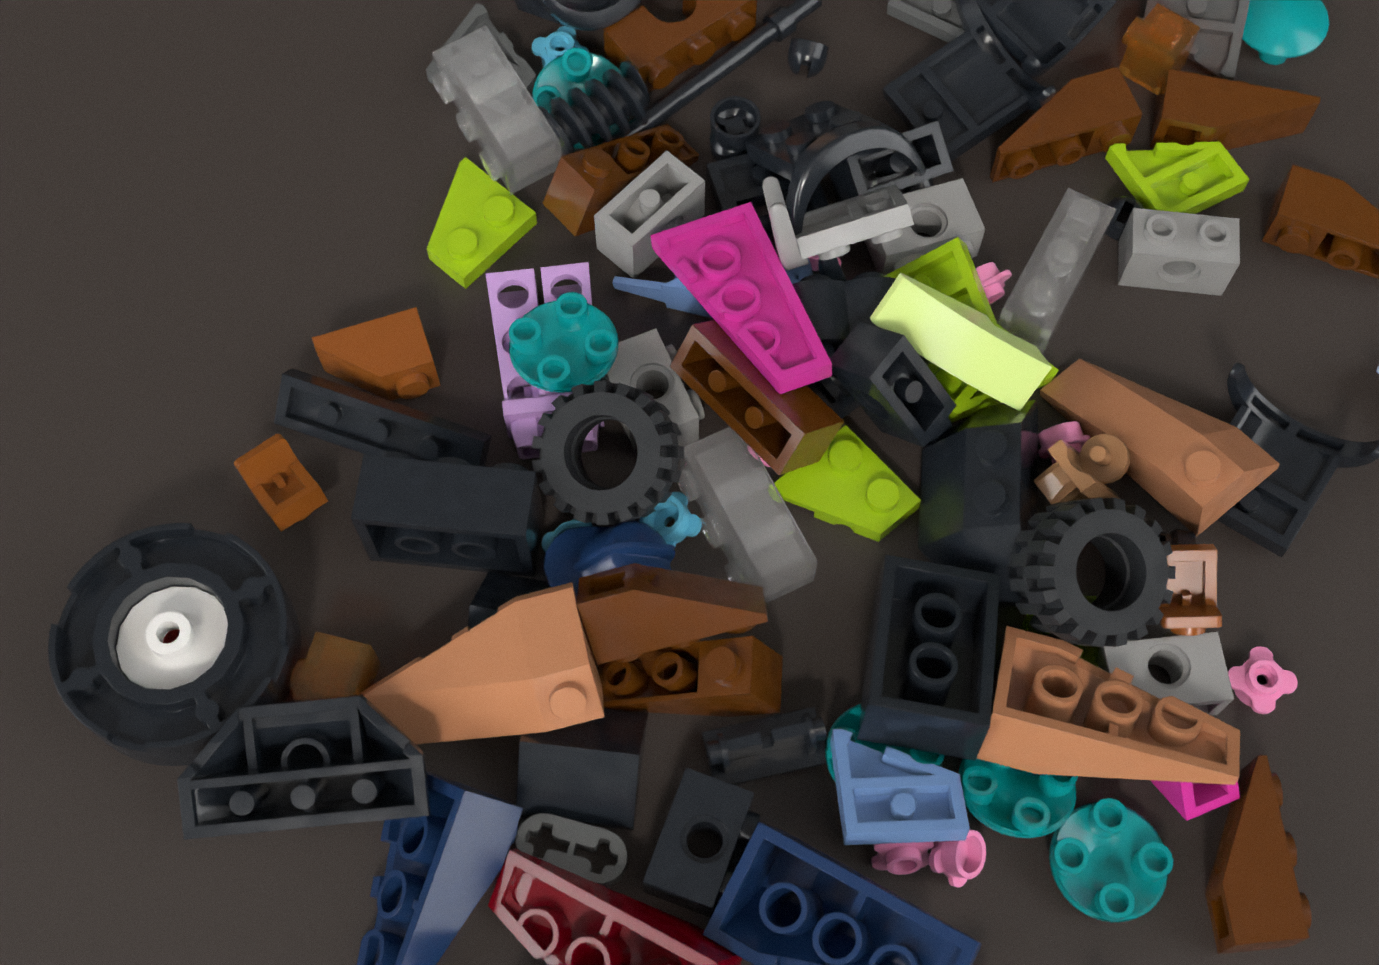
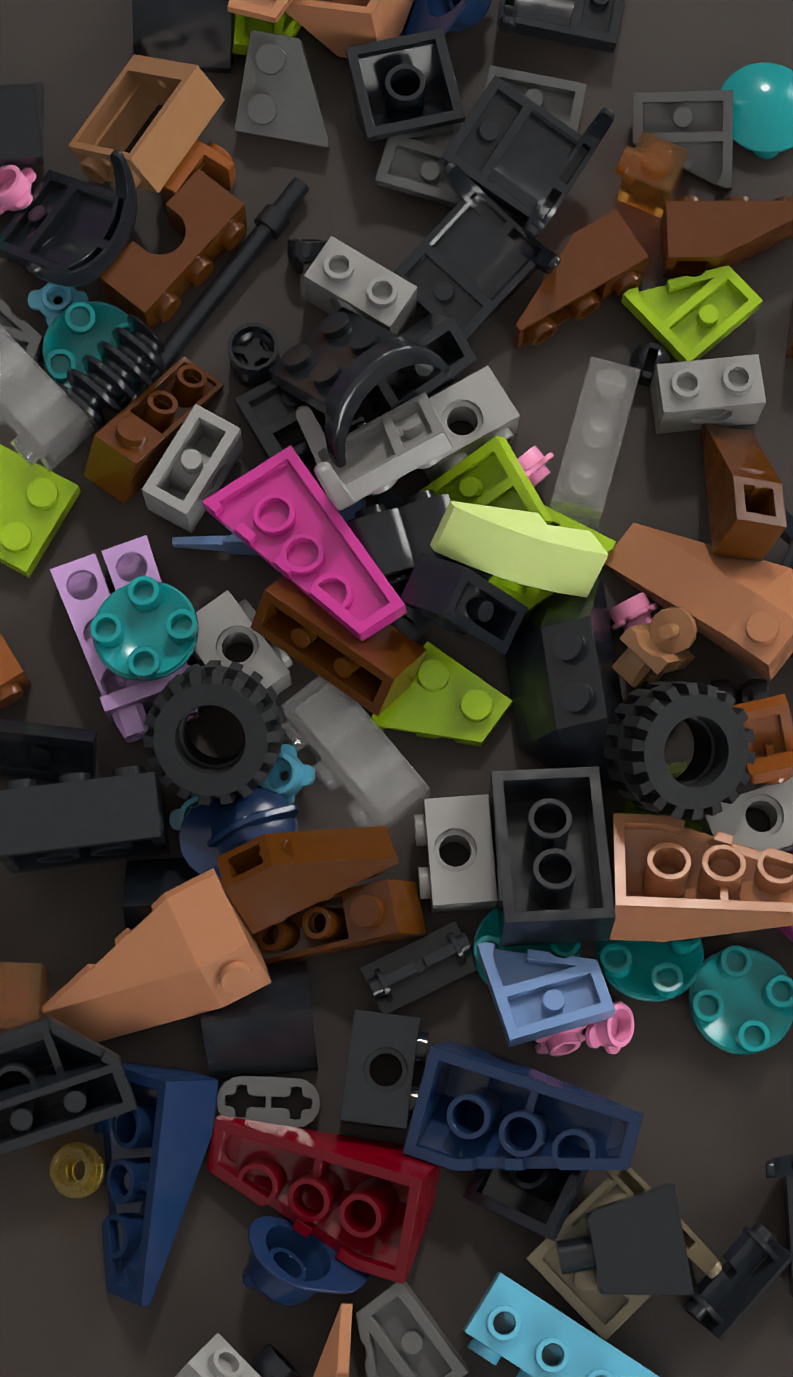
camera: 15 degrees left, 10 degrees up
(337, 866) = (63, 1170): none -> clear yellow plate
(831, 671) = (468, 823): none -> light grey brick
(847, 79) = (361, 285): none -> light grey brick
(1200, 350) = (741, 494): none -> reddish brown slope

